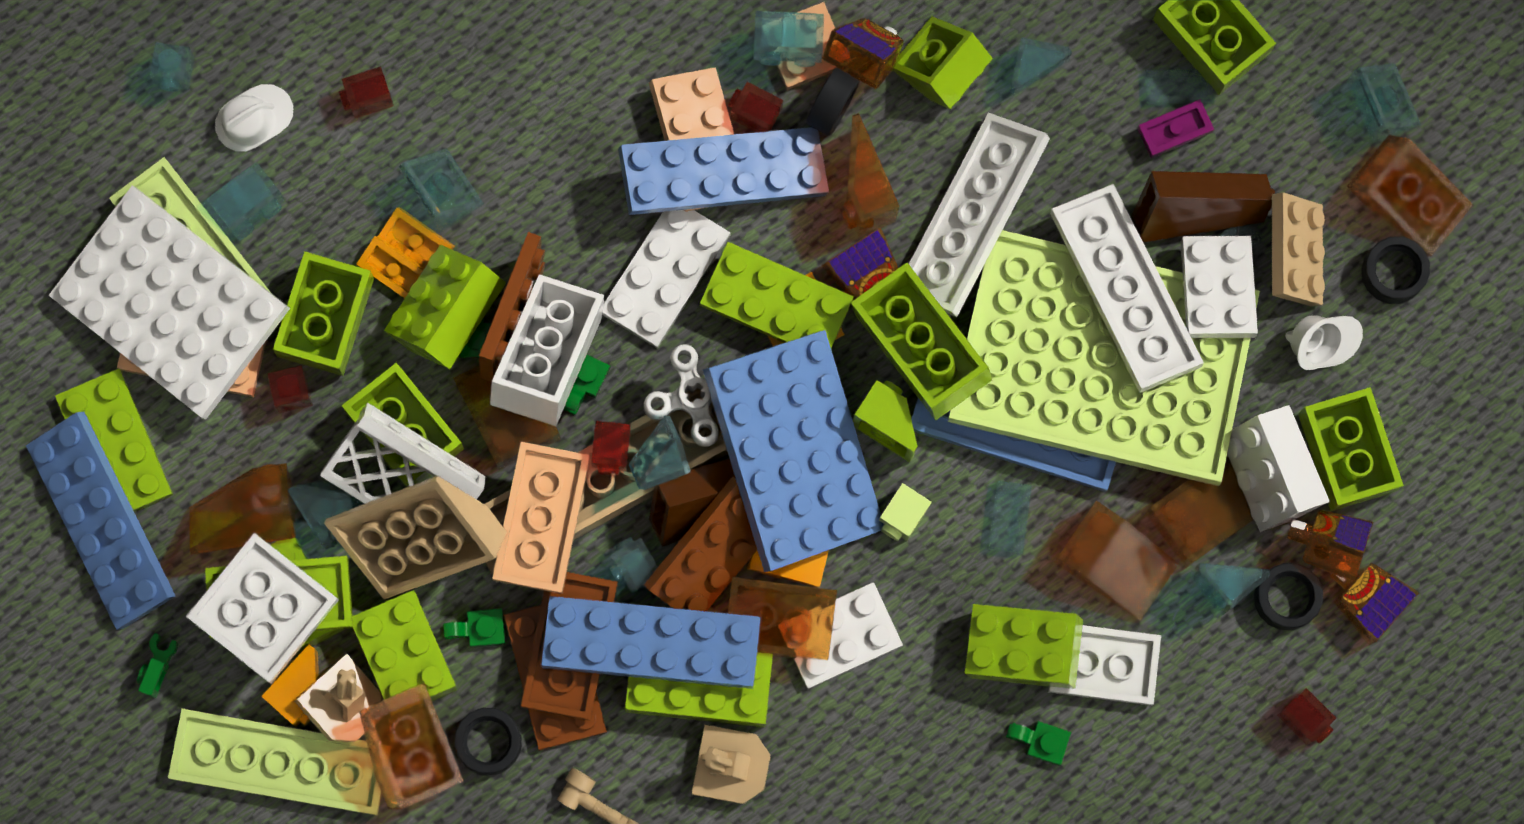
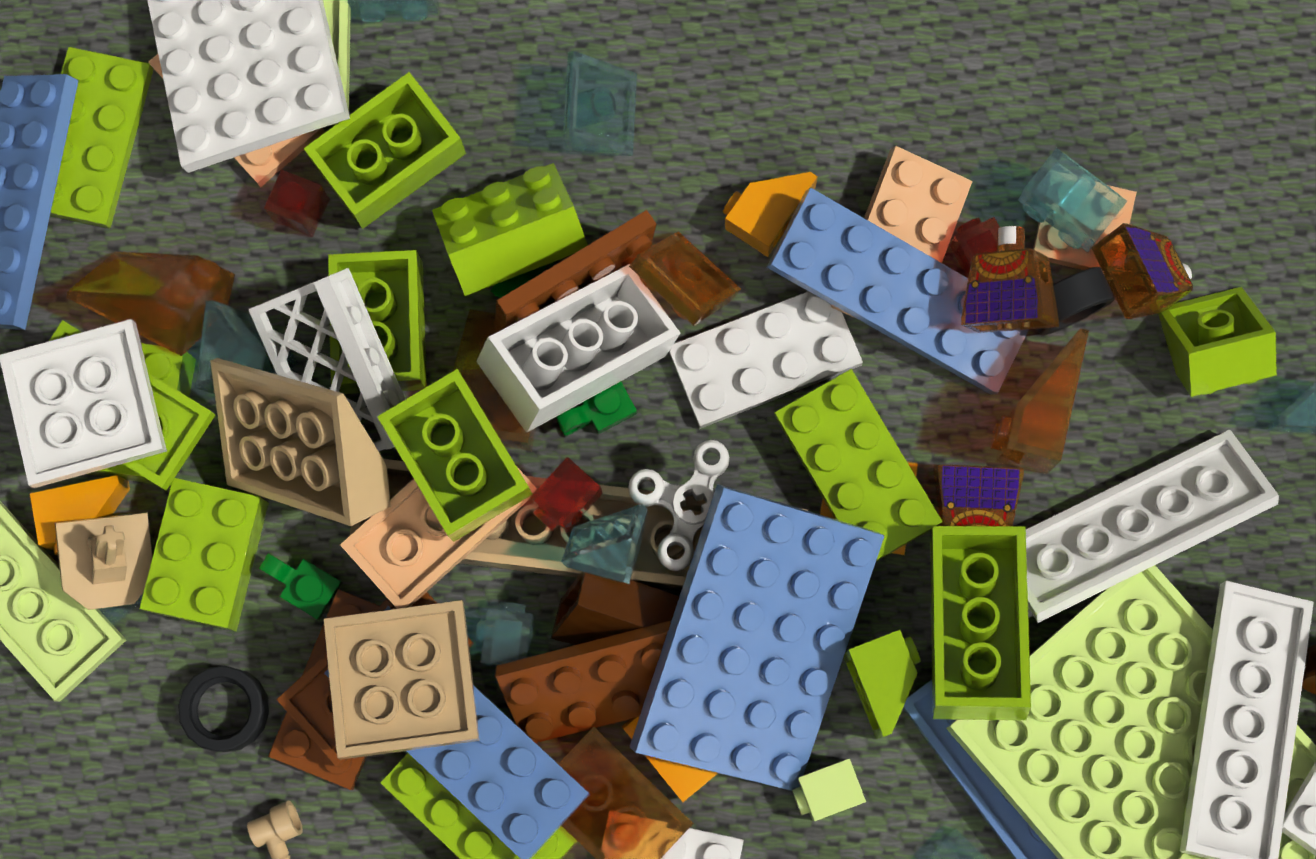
camera: 50 degrees right, 0 degrees up
(401, 251) = (513, 142): light orange slope -> none
(408, 748) = (130, 658): clear orange slope -> none
(527, 468) = (454, 455): none -> lime brick
(580, 258) = (684, 278): none -> clear orange plate
(595, 630) = (401, 680): none -> tan plate
(598, 178) = (765, 209): none -> light orange slope
(790, 120) = (1009, 287): none -> torso

